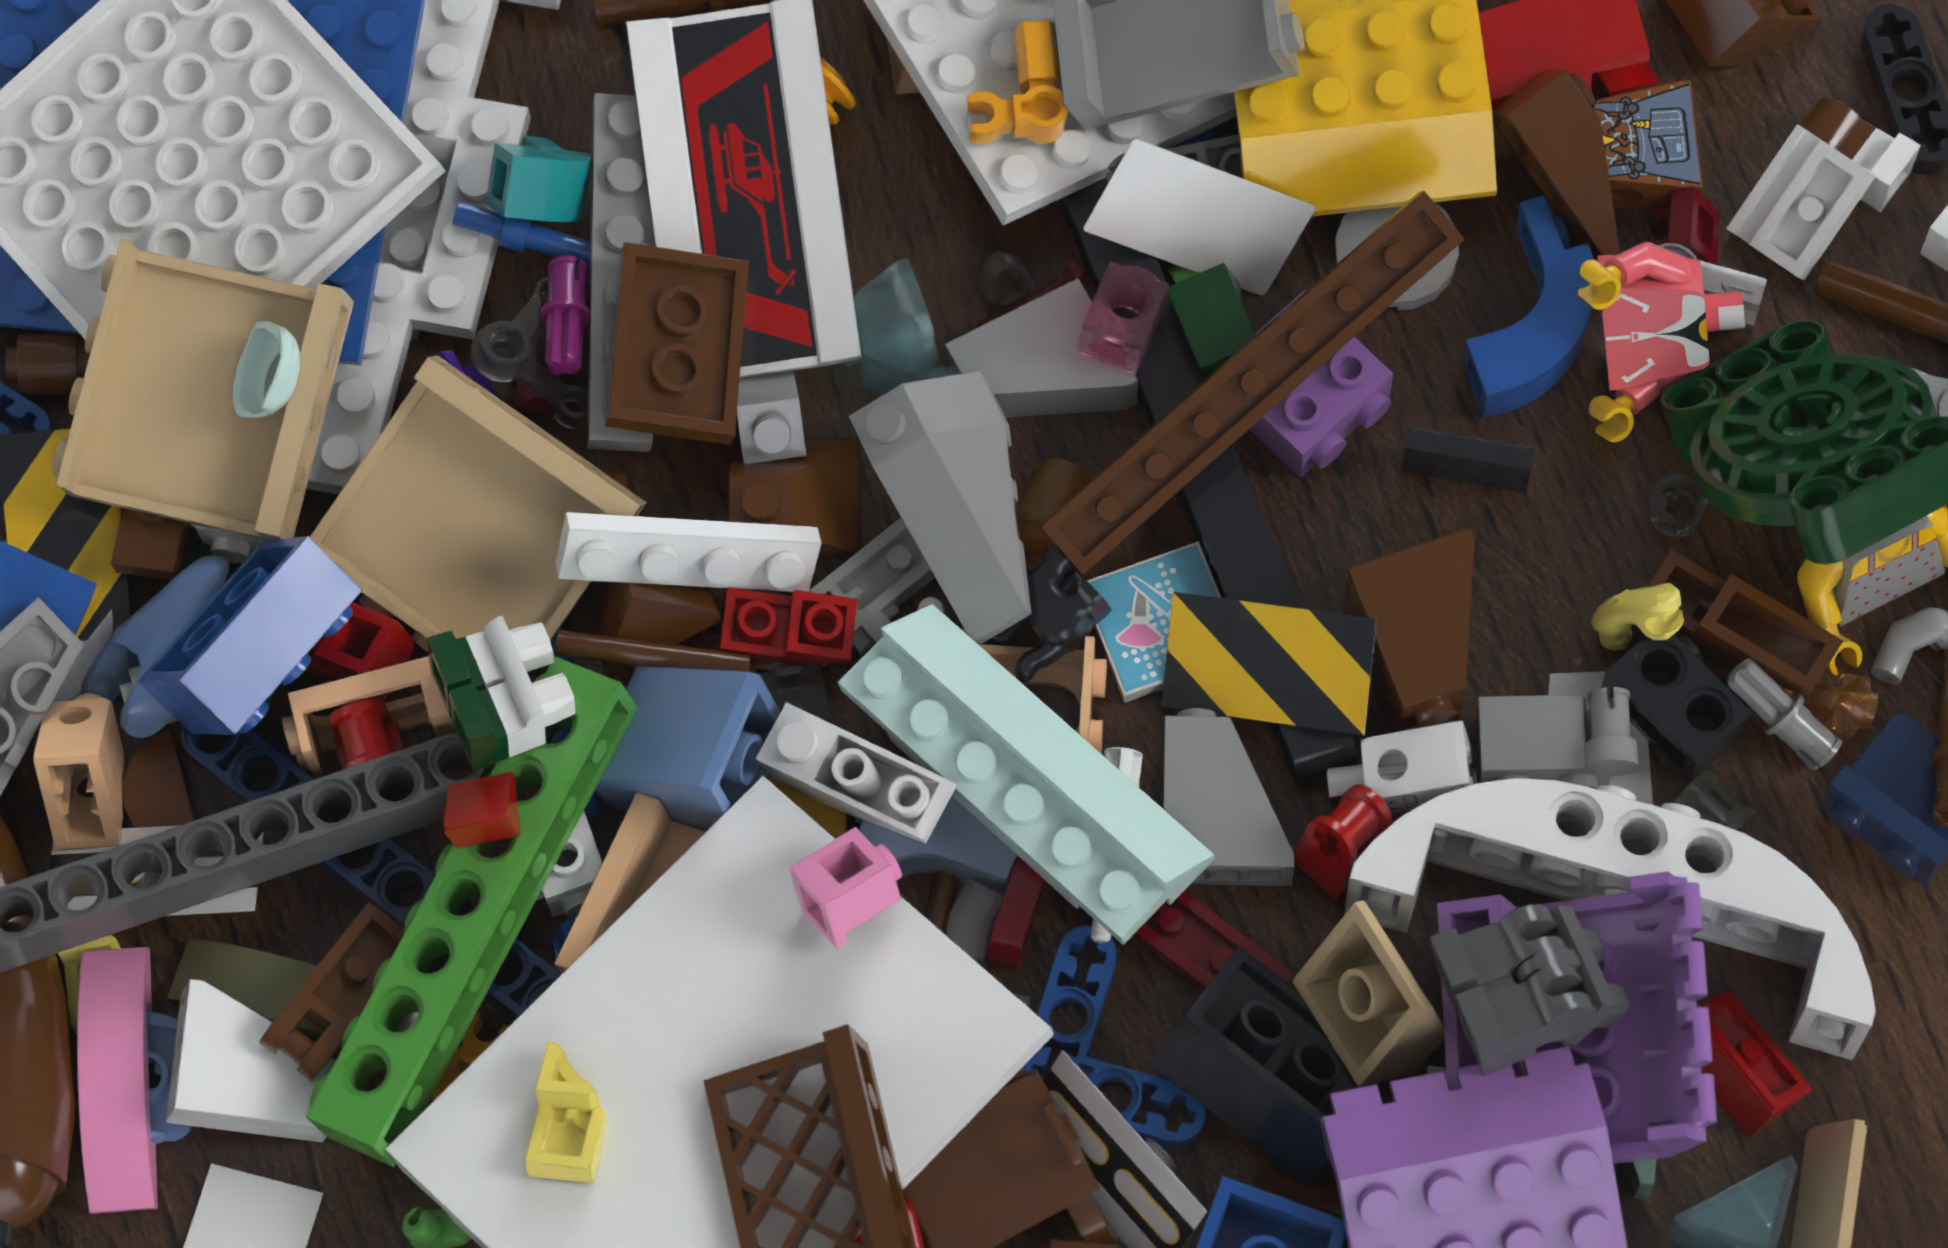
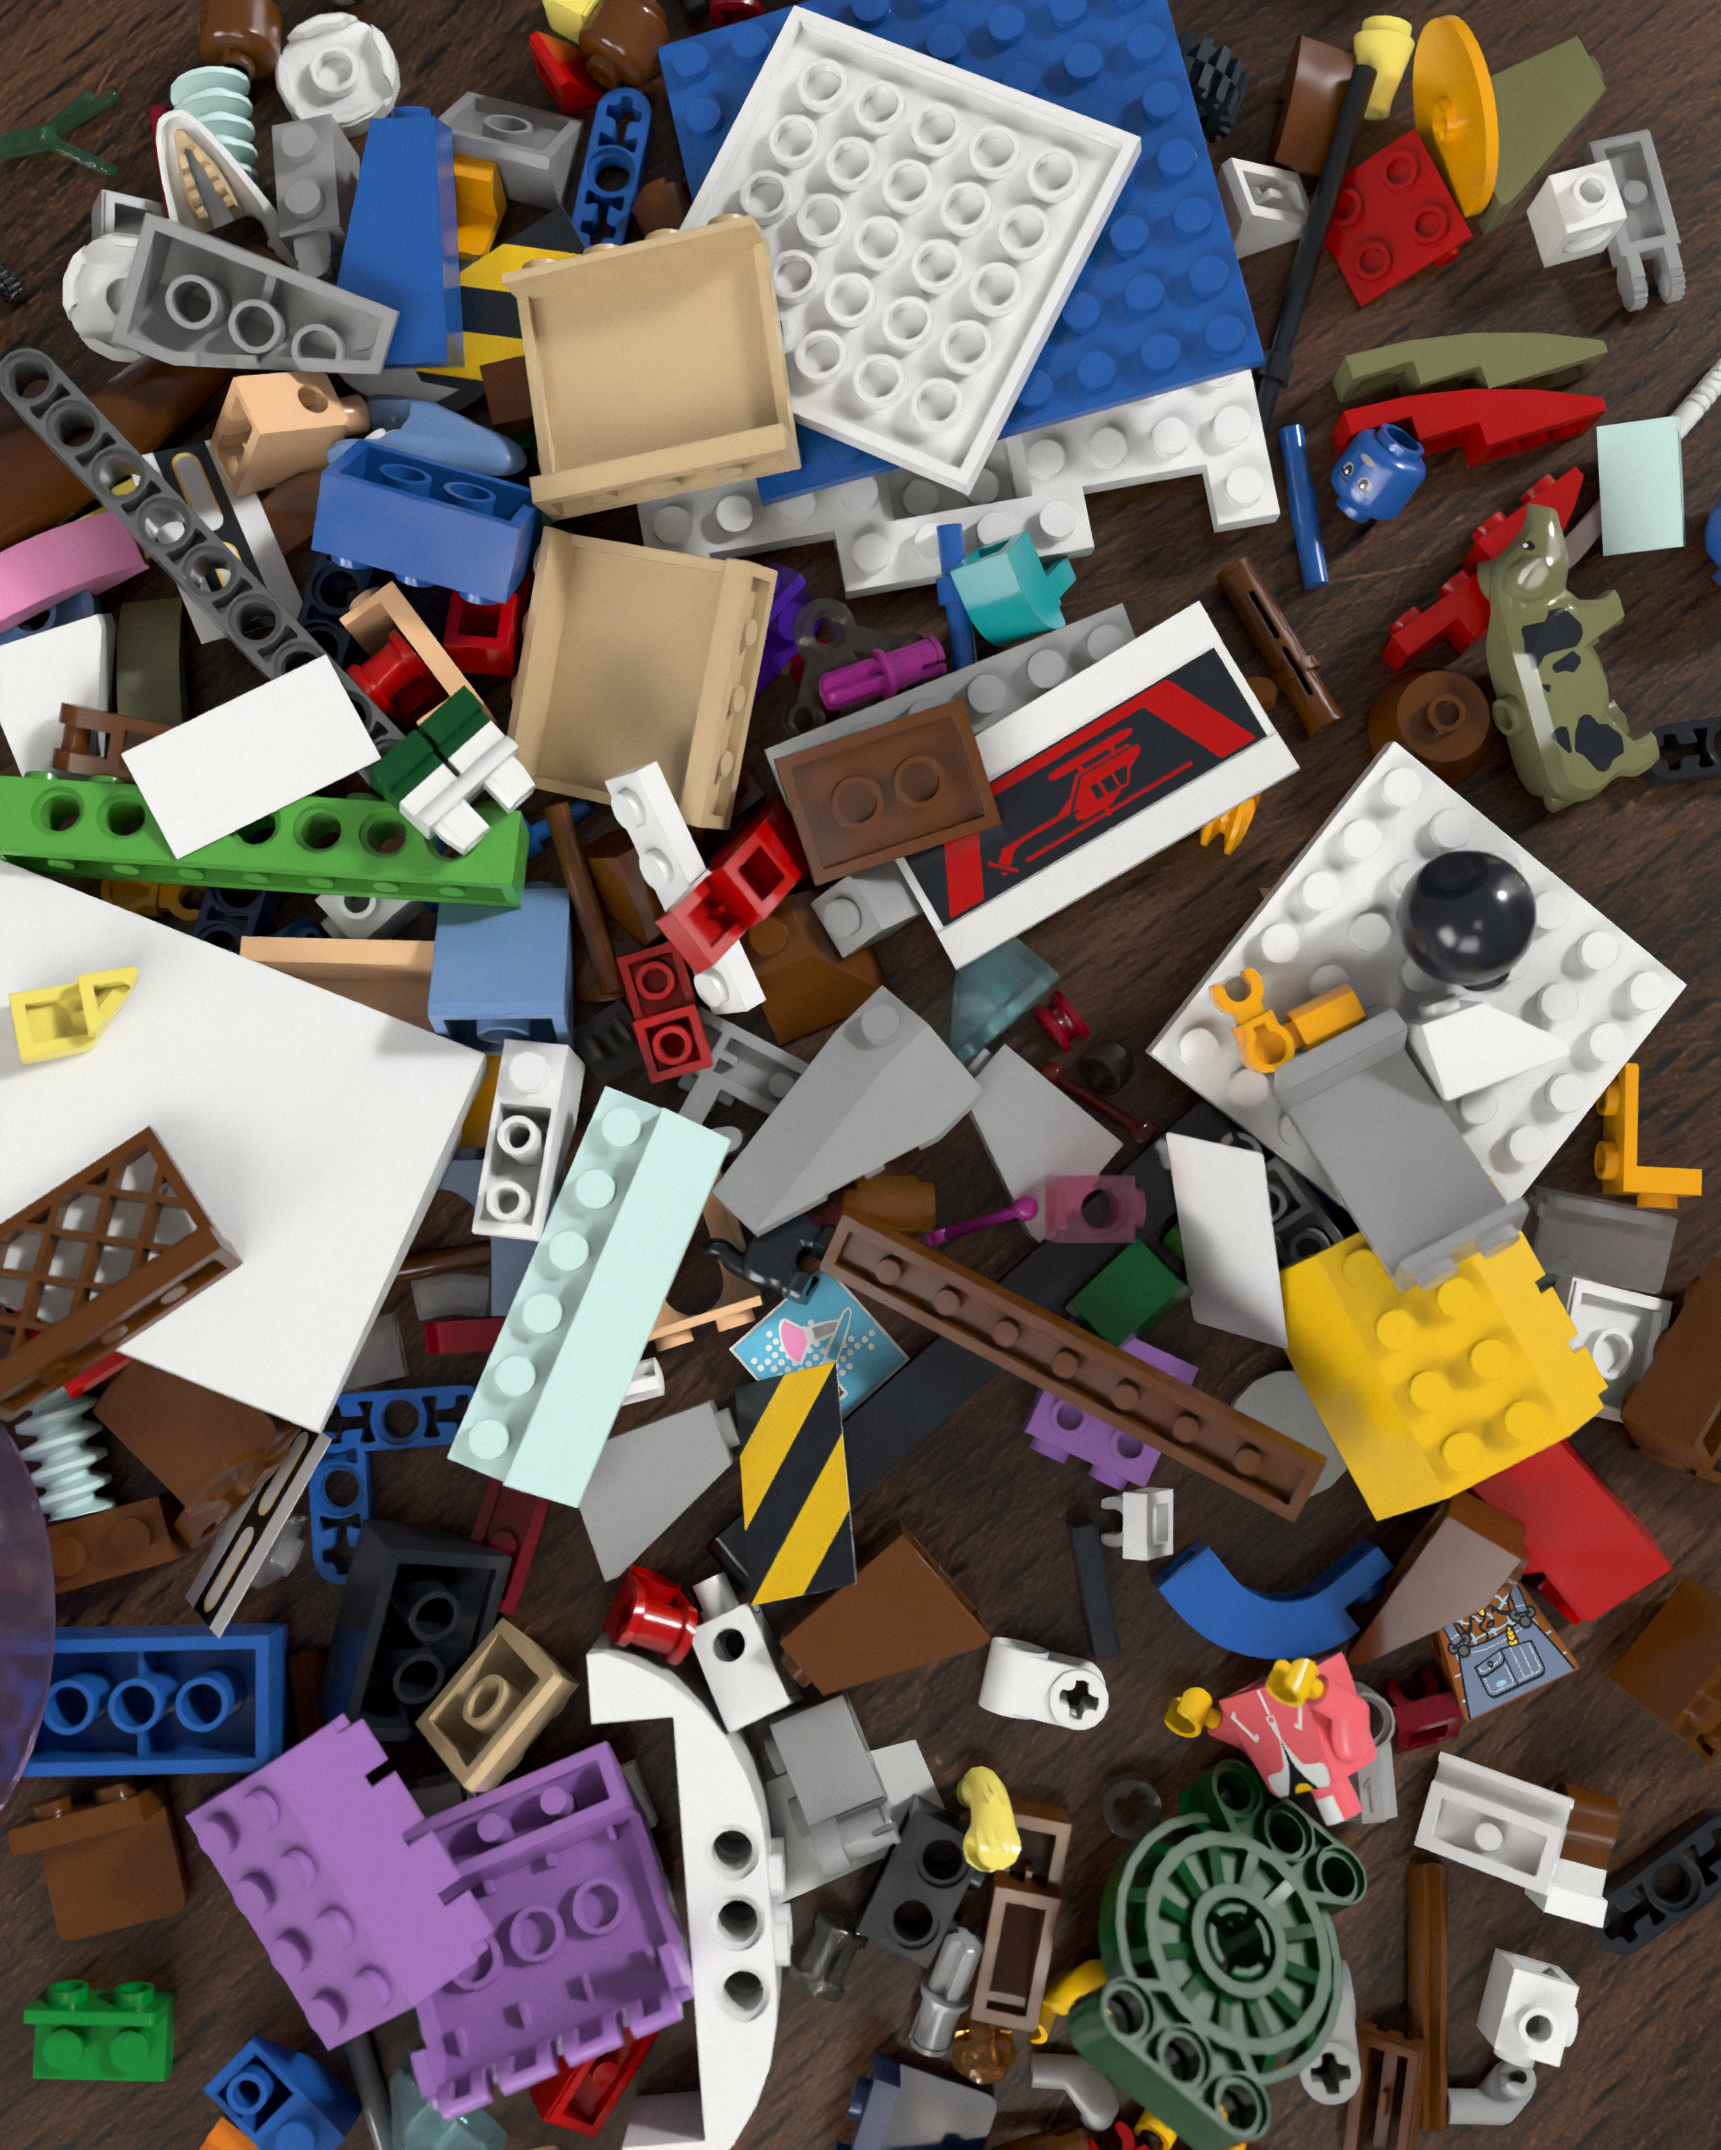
camera: 65 degrees right, 15 degrees up
(267, 352) = (685, 417): light aqua piece -> none
(395, 874) = (251, 756): none -> white sticker
(481, 810) = (337, 807): red slope -> none
(709, 490) = (738, 888): none -> red slope
(846, 884) = (382, 1162): bright pink brick -> none
(947, 299) = (1060, 1021): none -> dark red bush
(1100, 377) = (1024, 1208): none -> magenta hinge
(1425, 393) = (1146, 1523): none -> white tile
(1536, 540) = (1029, 1681): none -> white piece
(1557, 976) = (551, 1898): dark grey hips -> none

